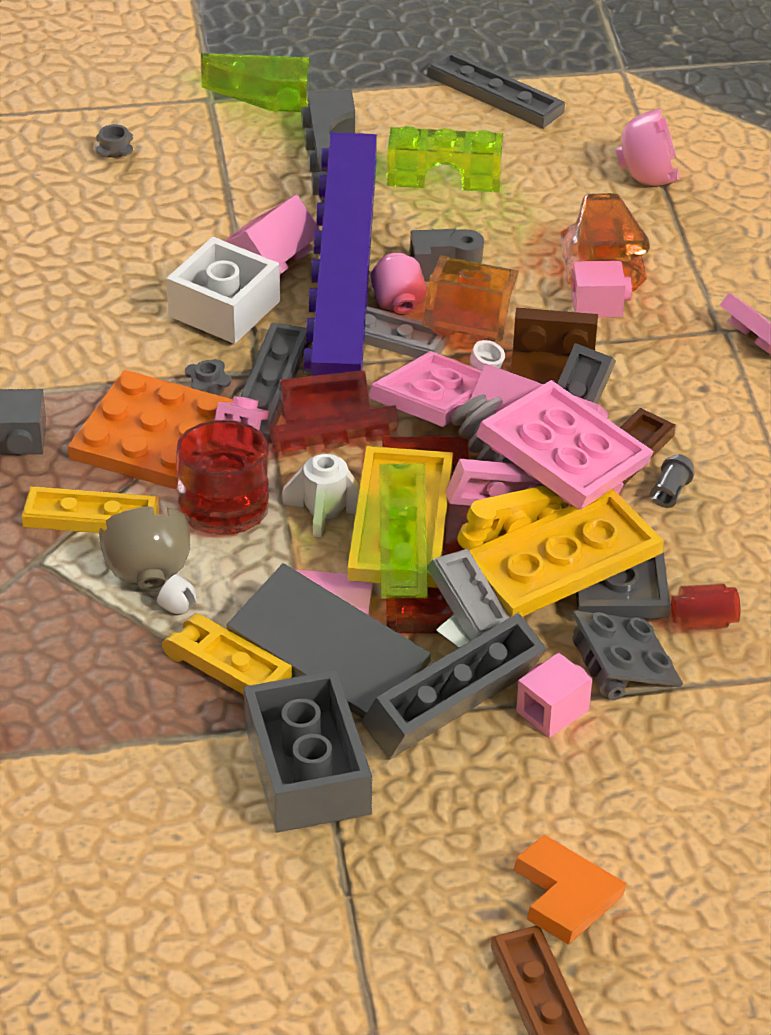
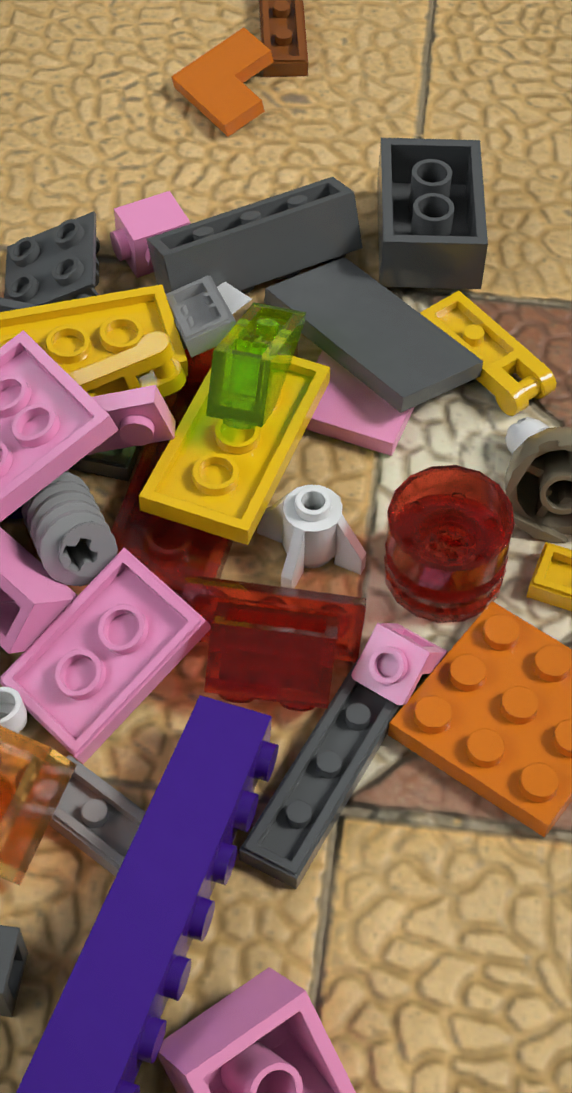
camera: 165 degrees left, 10 degrees up
(208, 376) = (417, 803): dark grey plate -> none
(223, 289) = (363, 930): white brick -> none
(398, 283) = (64, 900): bright pink head -> none

